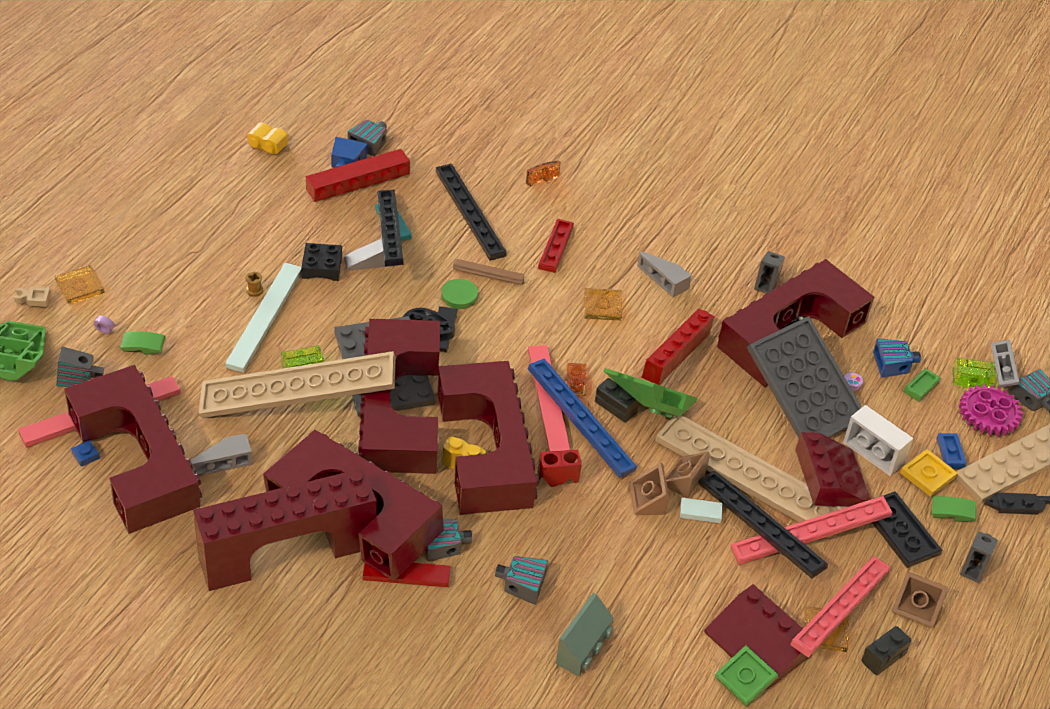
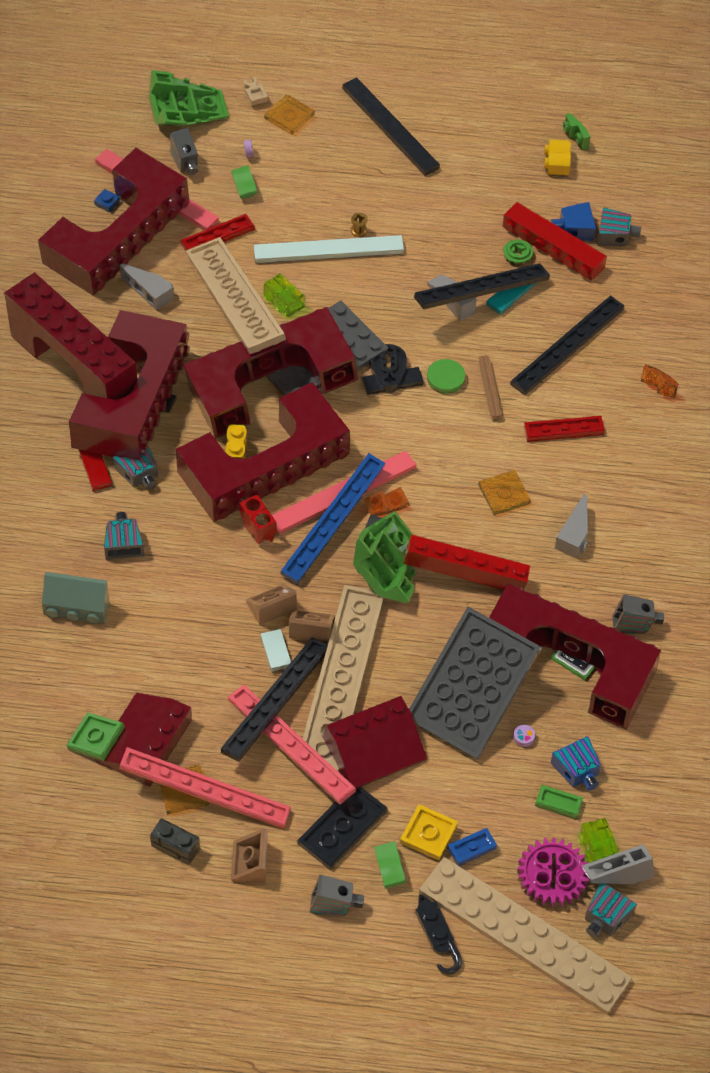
camera: 70 degrees right, 10 degrees up
(147, 225) = (391, 126): none -> black tile
(191, 386) = (226, 231): none -> red tile
(243, 117) = (576, 130): none -> bright green slope
(321, 261) = (419, 259): black brick -> none
(346, 198) = (522, 247): none -> bright green gear
(877, 440) = (438, 770): white brick -> none

